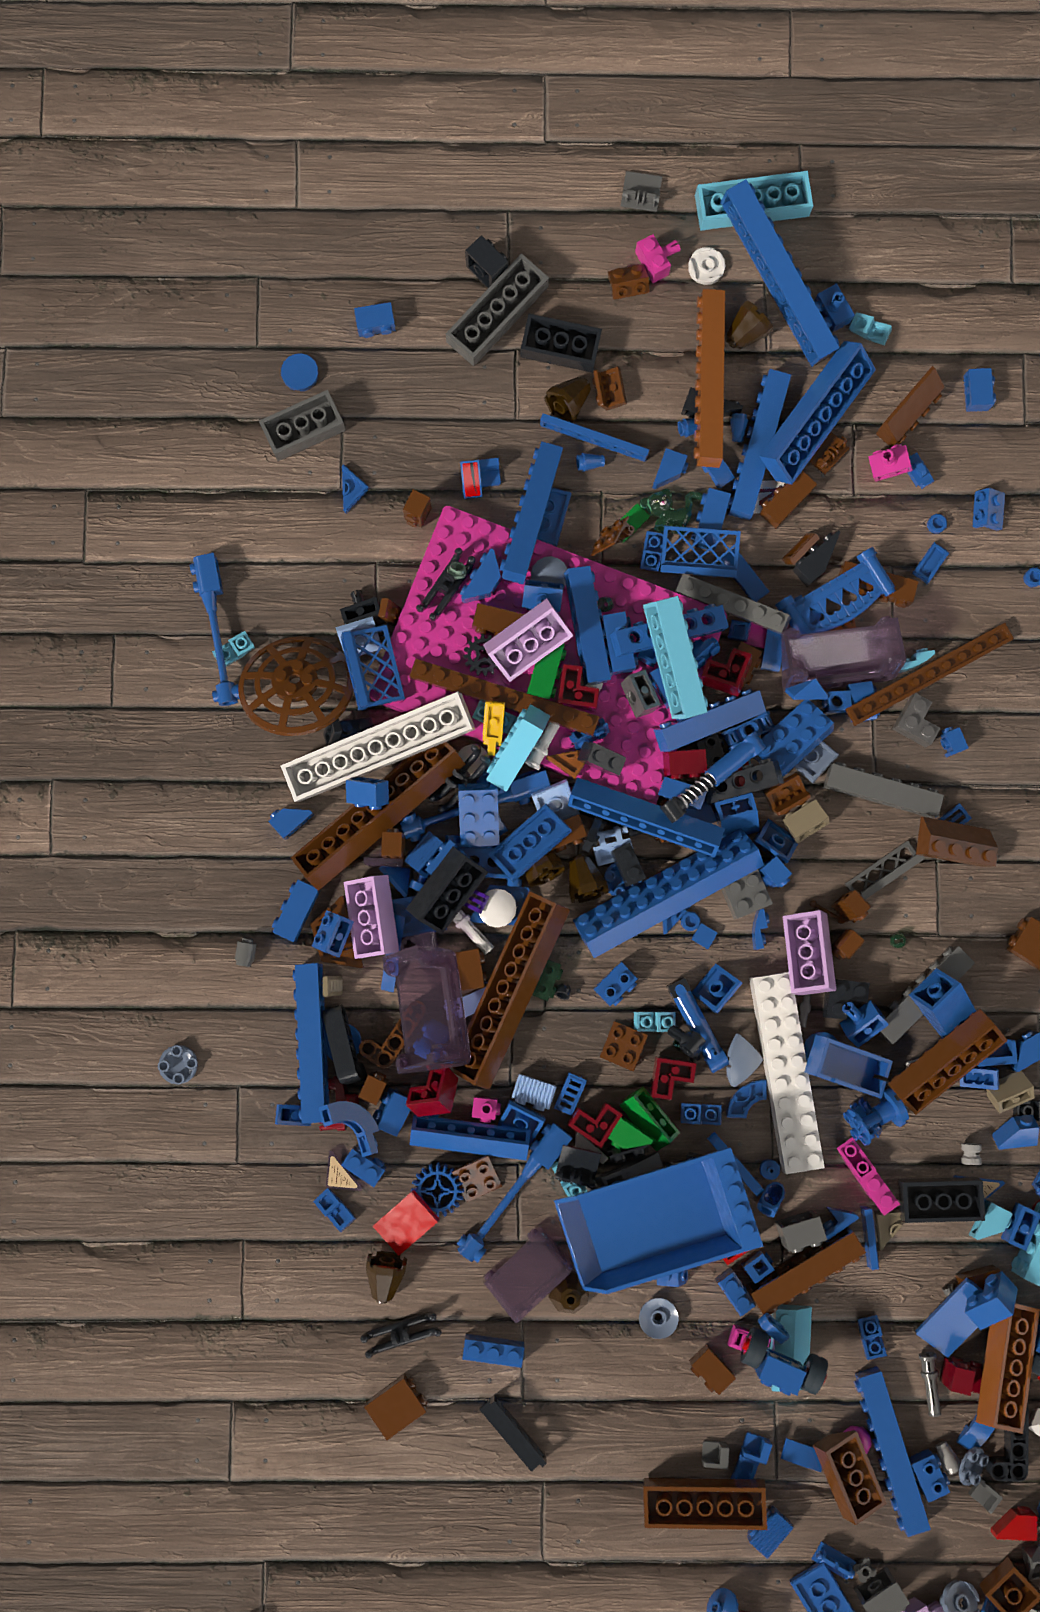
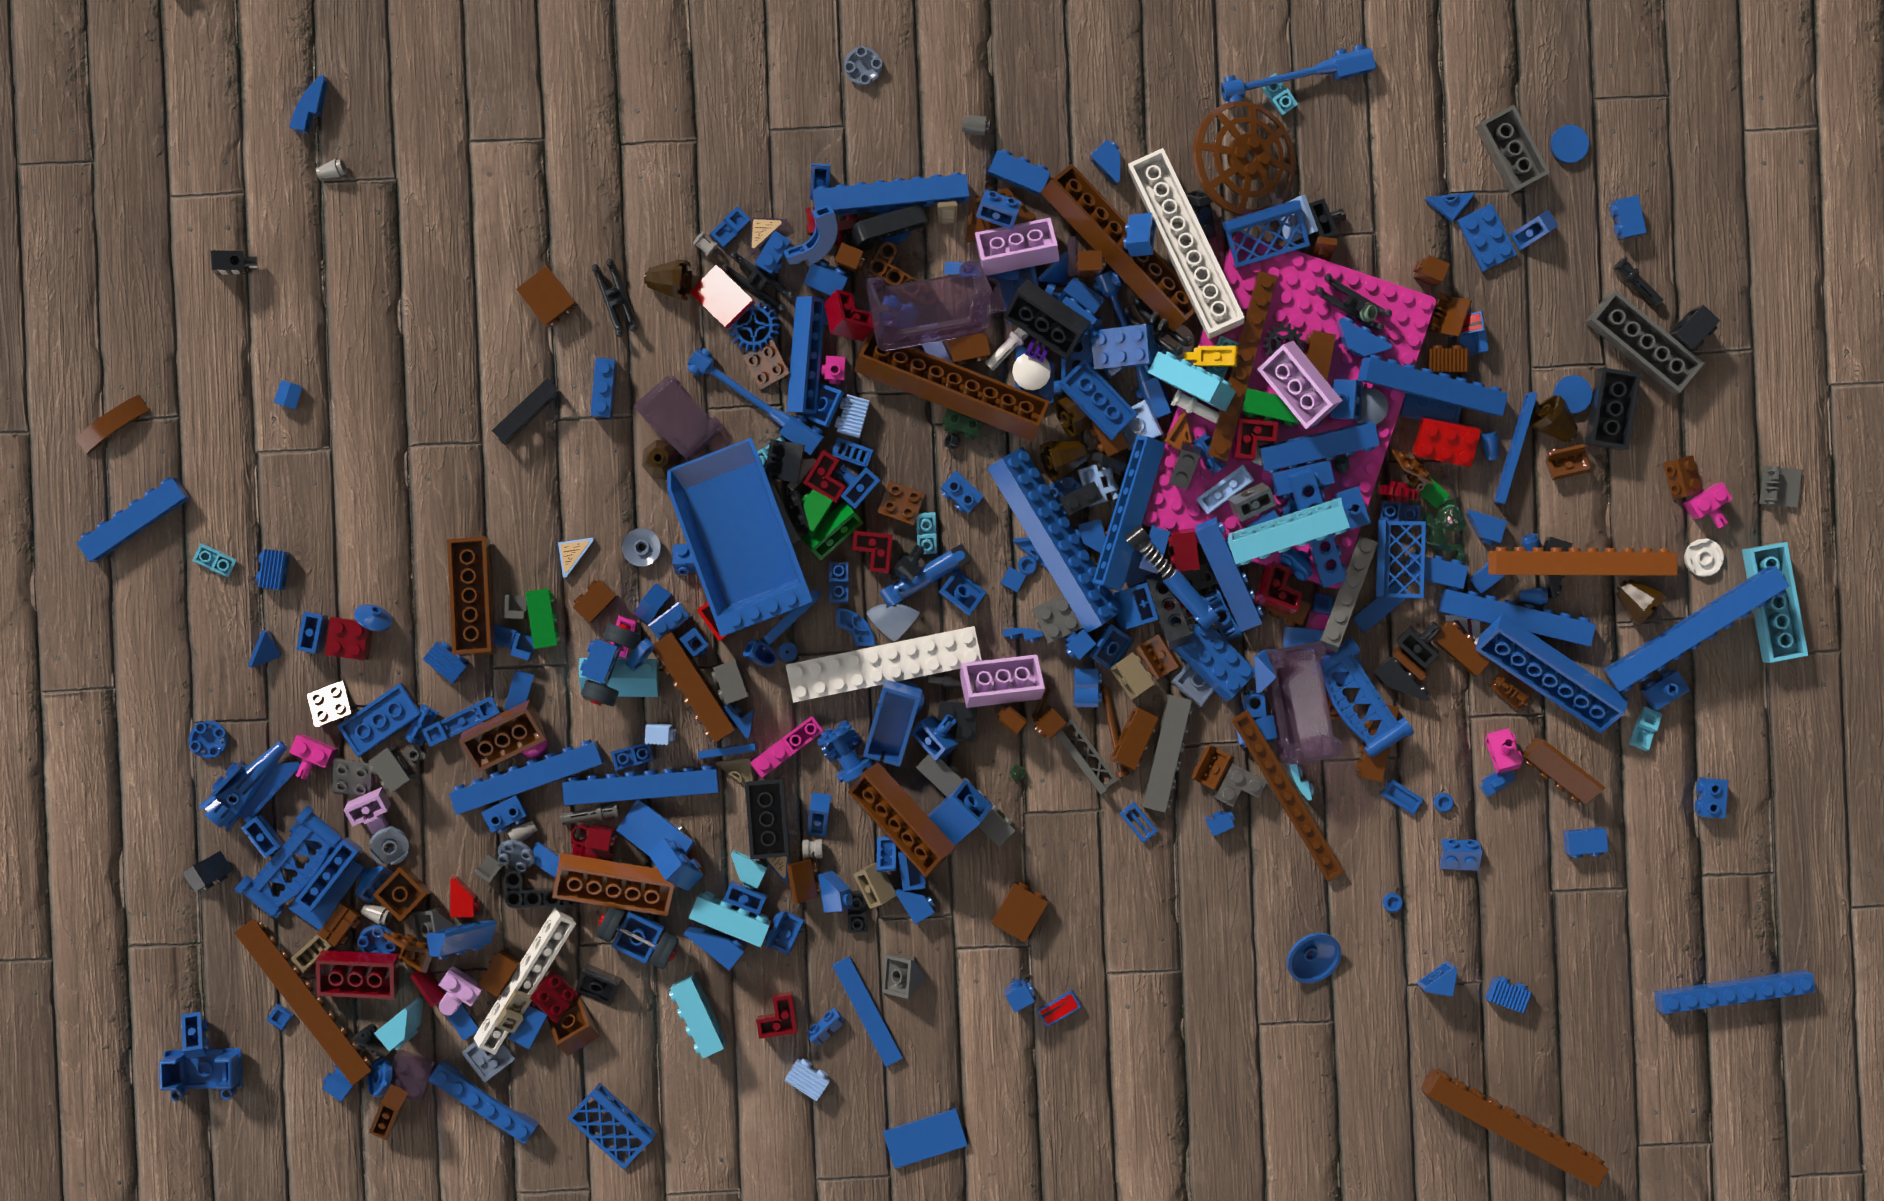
camera: 90 degrees right, 5 degrees up
(350, 1237) = (704, 243): none -> light grey bush
(382, 409) = (1534, 230): none -> blue slope
(386, 455) = (1486, 237): none -> blue plate
(391, 1183) = (757, 281): none -> black piece
(429, 317) = (1632, 274): none -> black pin
(461, 493) = (1449, 315): none -> reddish brown hinge
(505, 497) = (1448, 360): none -> reddish brown brick
(541, 378) = (1575, 392): none -> blue tile
(585, 503) = (1446, 441): none -> red brick
(605, 1089) = (858, 486): none -> blue brick
(625, 720) = (1225, 489): none -> light blue tile
(634, 550) = (1399, 492): none -> dark red gear
(648, 593) = (1354, 507): none -> blue brick
(660, 1391) = (572, 552): none -> tile
(663, 855) = (1092, 535): none -> blue slope
(715, 1308) = (652, 603): none -> blue slope
(728, 1427) = (542, 618): none -> green brick
(783, 538) = (1419, 644): none -> black brick
(815, 867) = (1086, 687): none -> blue brick
(832, 1519) = (460, 721): none -> blue slope
(852, 1309) = (659, 734): none -> light blue brick
(869, 822) = (1134, 739): none -> reddish brown brick
(899, 746) = (1212, 767): none -> reddish brown bracket
(901, 836) = (1112, 727): none -> reddish brown bar
(903, 1330) = (641, 786): none -> blue brick
(936, 1145) = (818, 814): none -> blue slope
(939, 269) = (1711, 797): none -> blue brick
(956, 842) = (1118, 826): reddish brown slope -> none
(961, 1399) = (578, 846): none -> dark red piece
(1004, 1166) = (803, 880): none -> reddish brown slope

